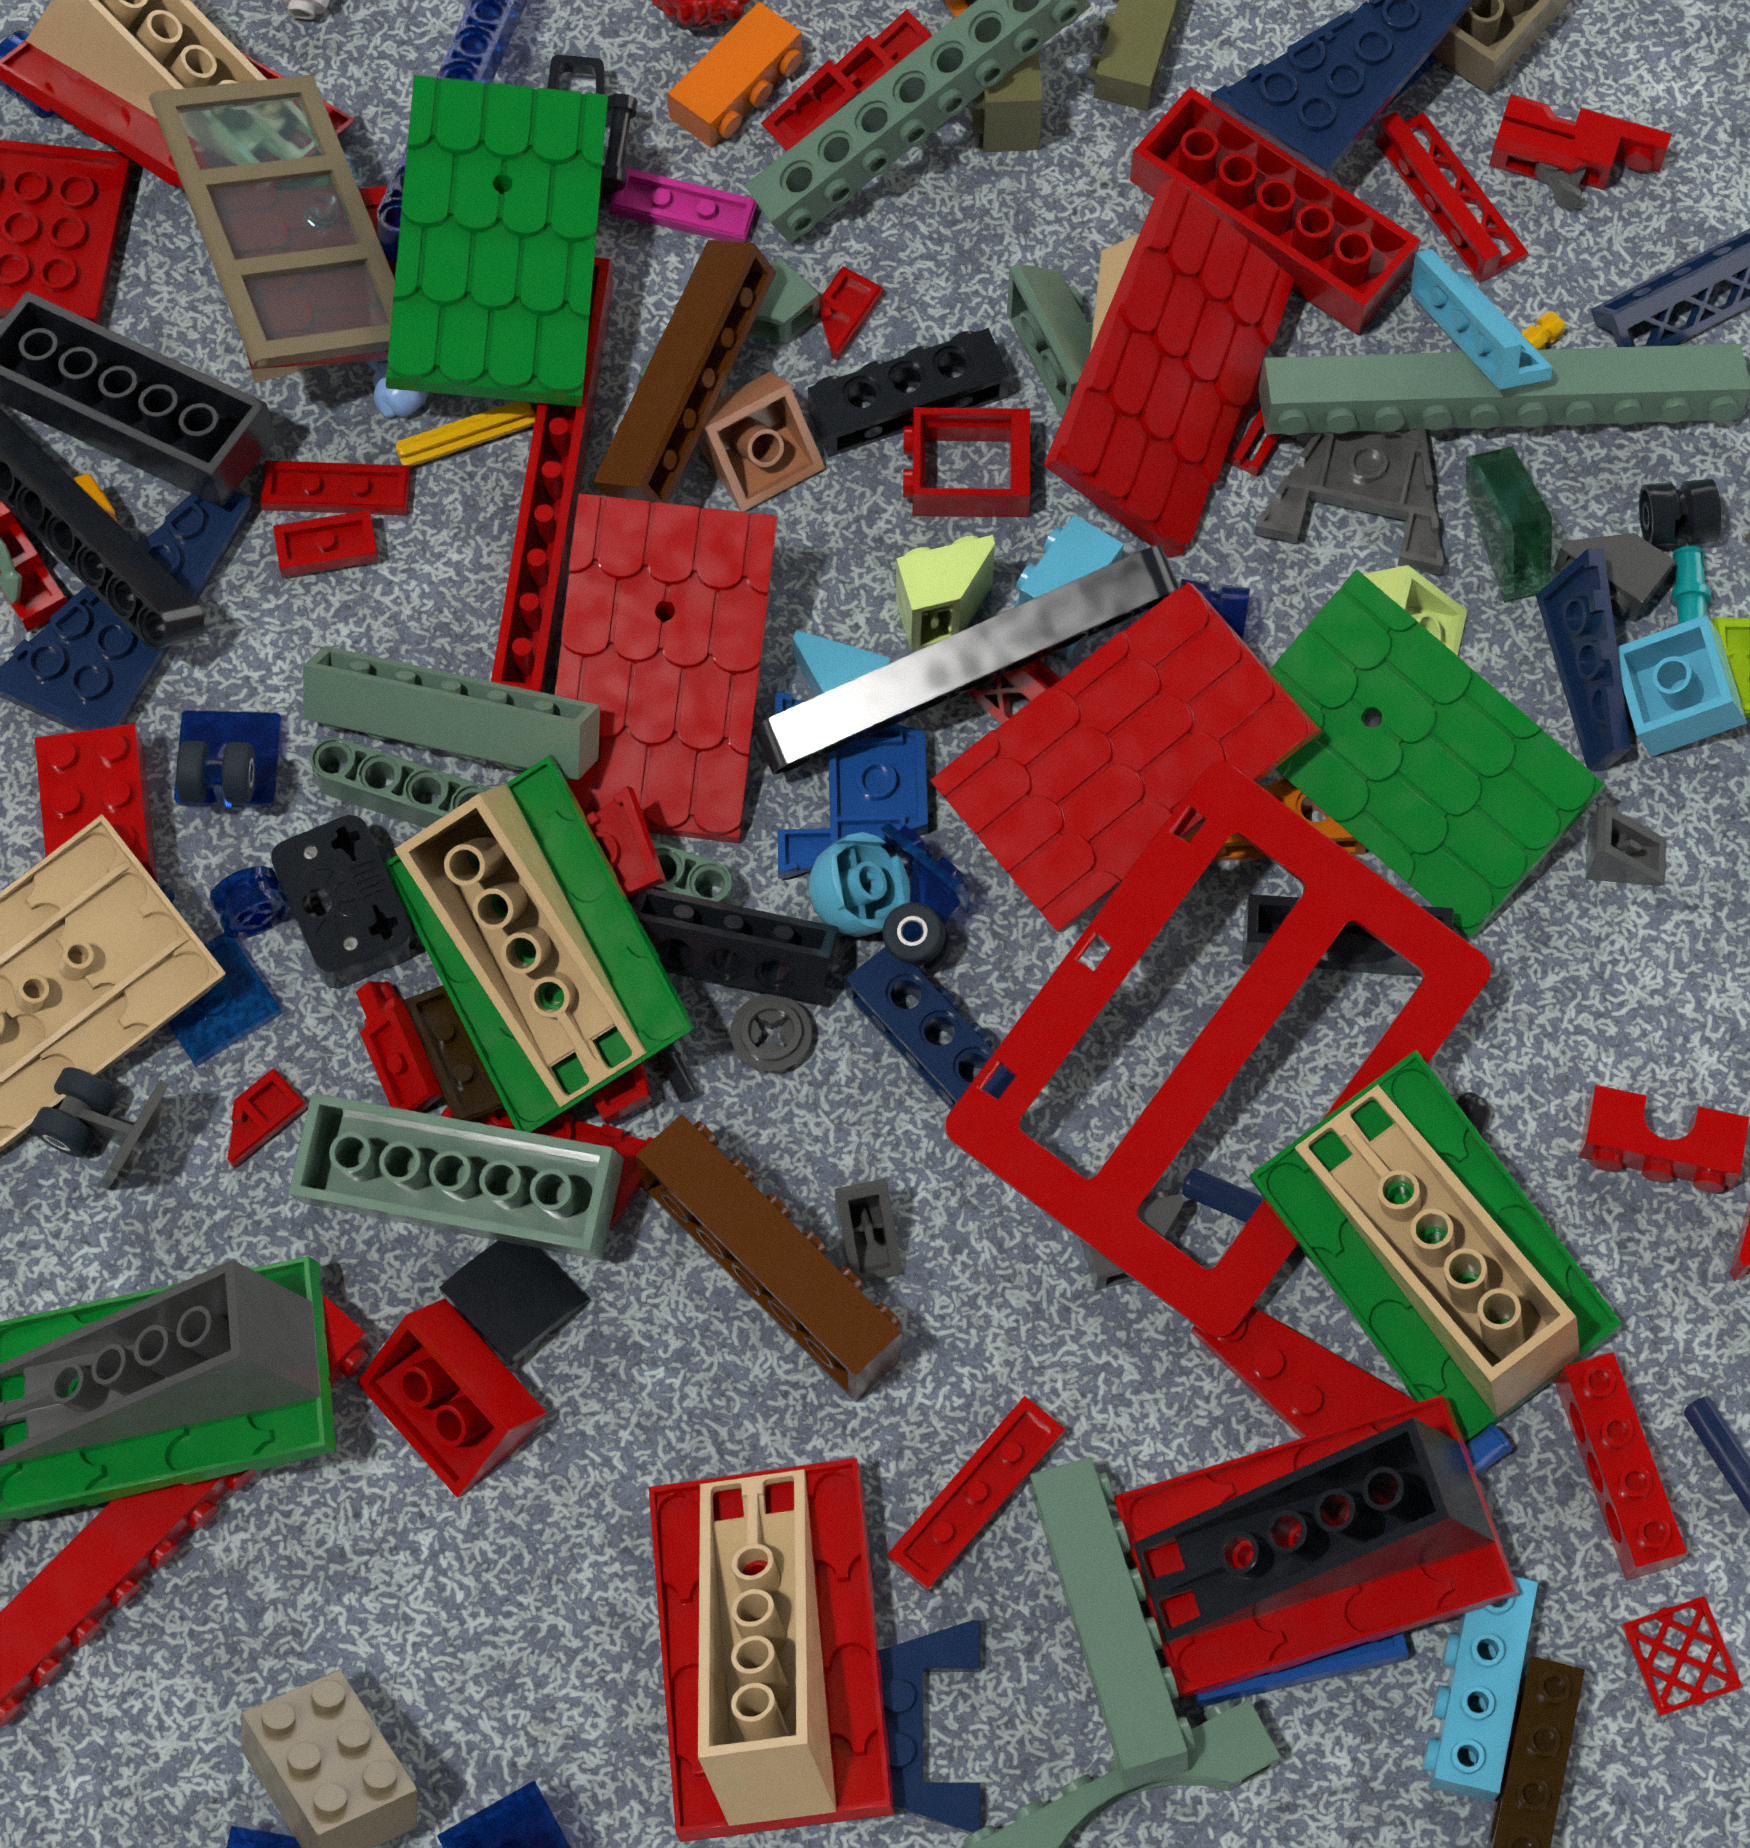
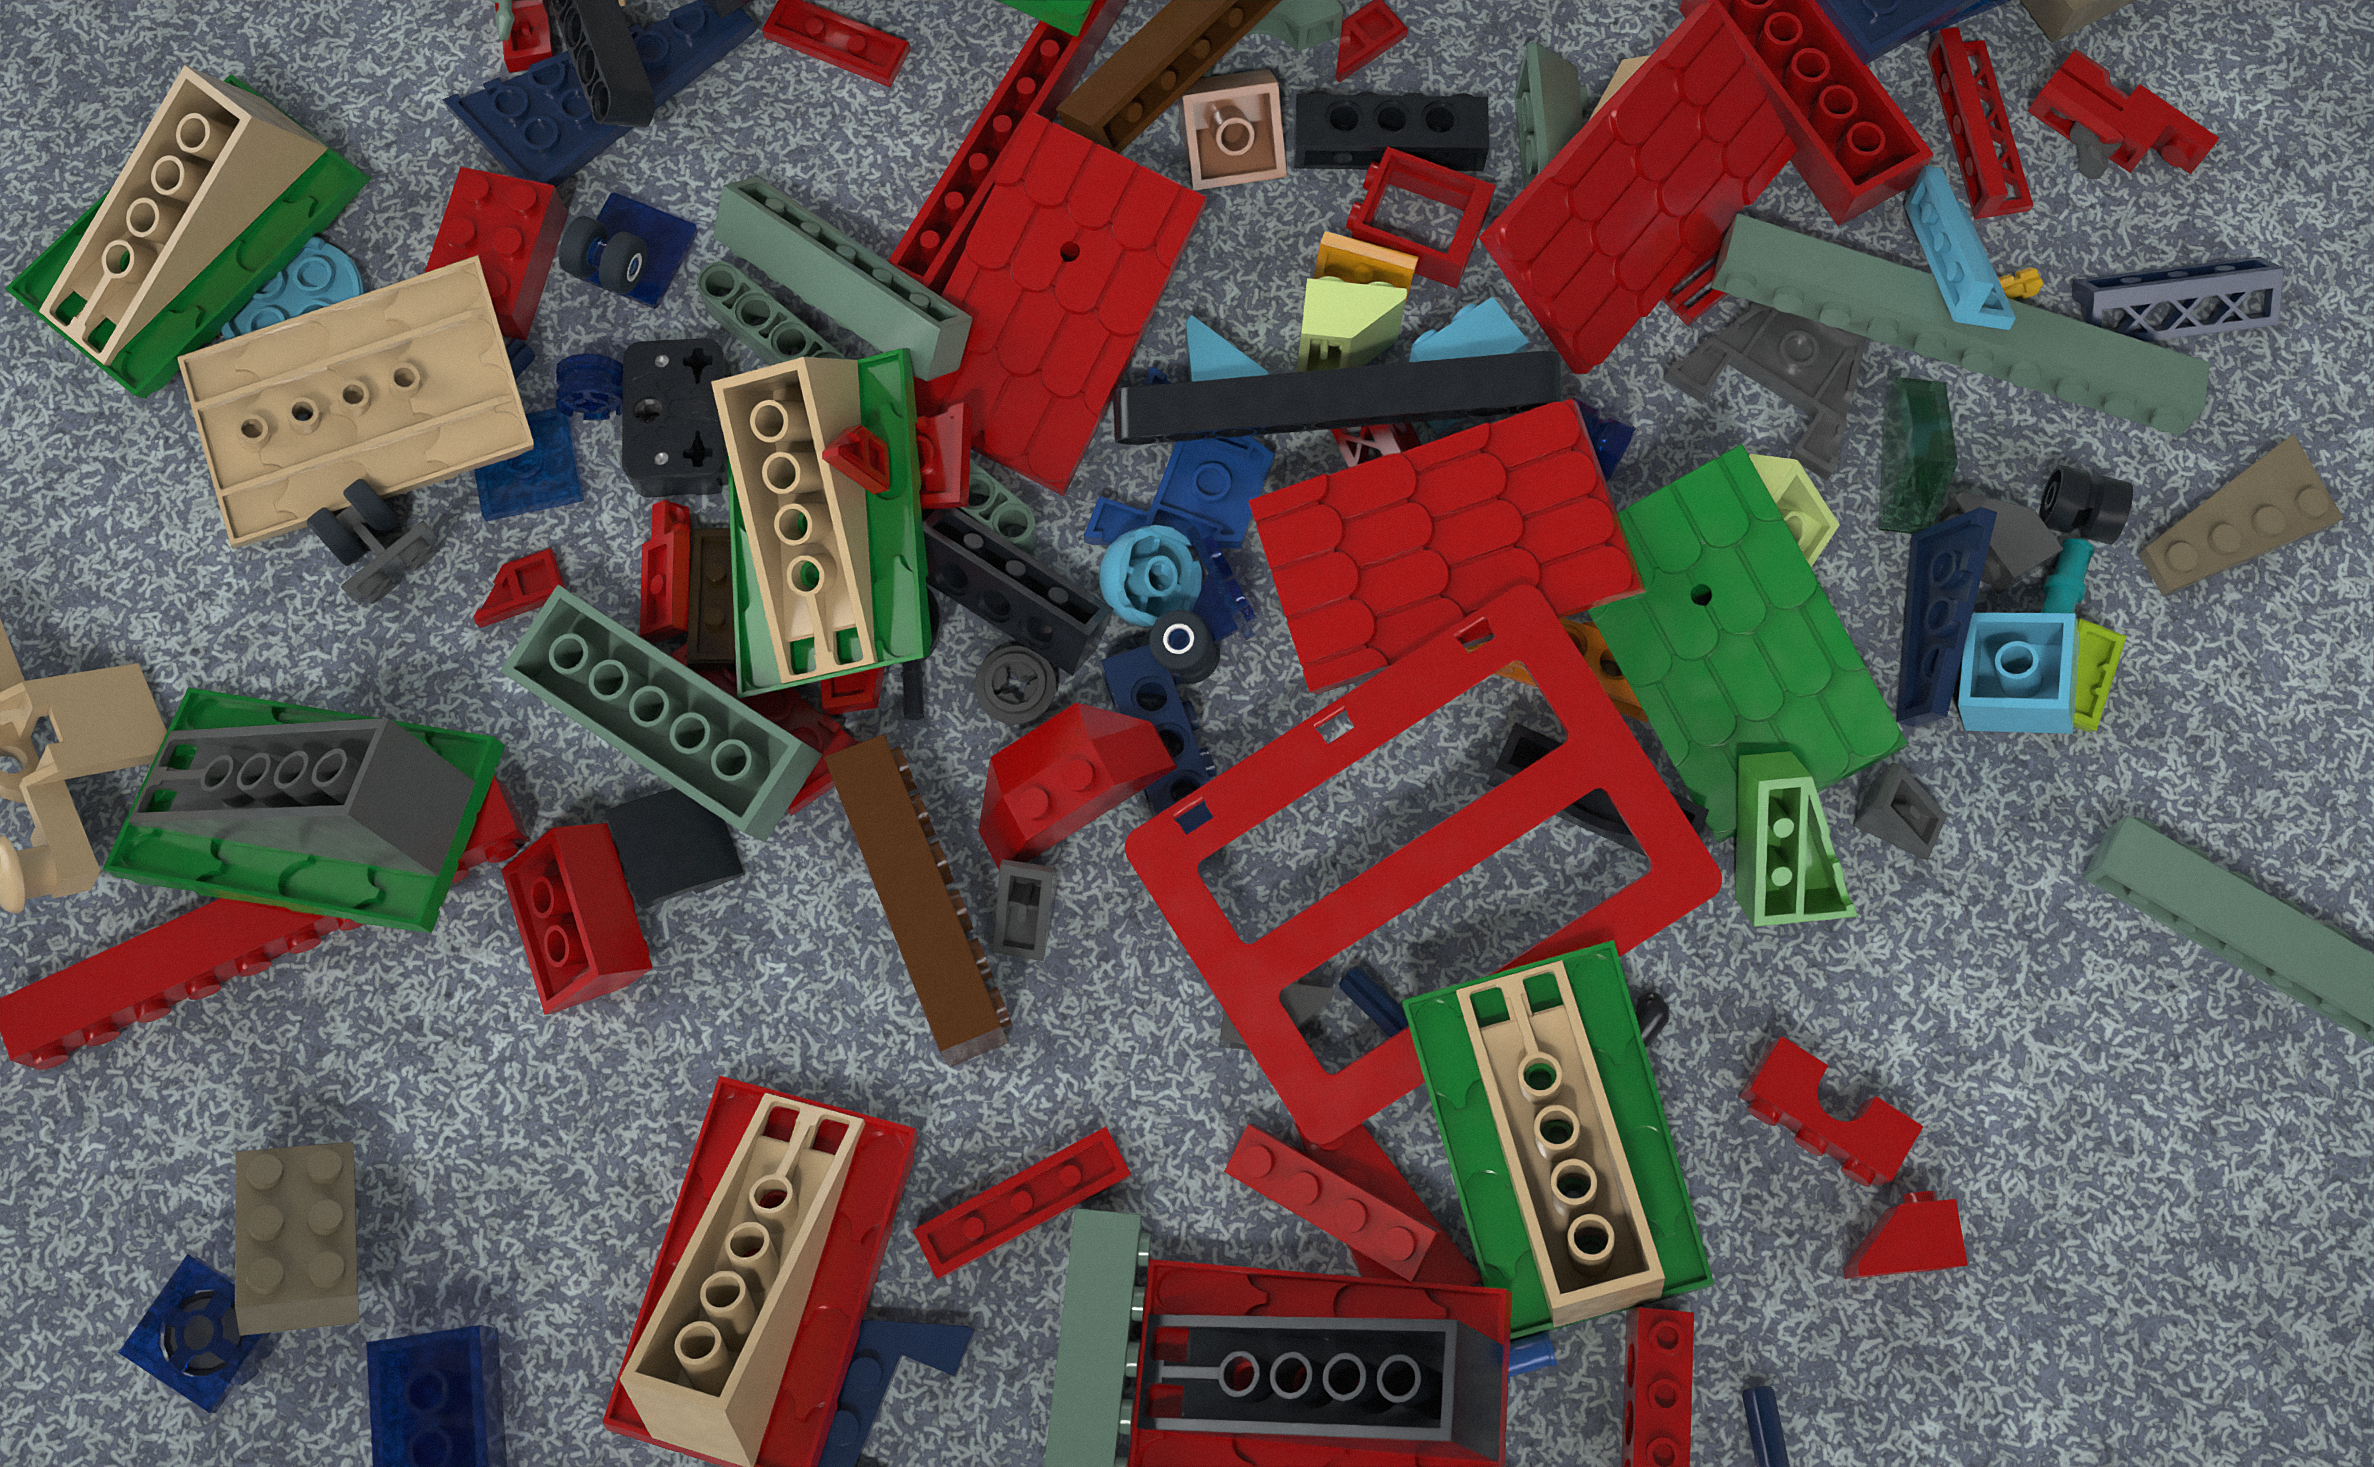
camera: 20 degrees right, 5 degrees up
(325, 543) = (803, 85): red plate -> none
(465, 433) = (968, 30): yellow axle -> none
(557, 870) = (860, 457): none -> red tile
(857, 1098) = (1066, 778): none -> red wedge
(934, 525) = (1363, 262): none -> light orange plate
(1256, 1382) = (1332, 1202): none -> red plate
(1532, 916) = (1785, 846): none -> bright green wedge

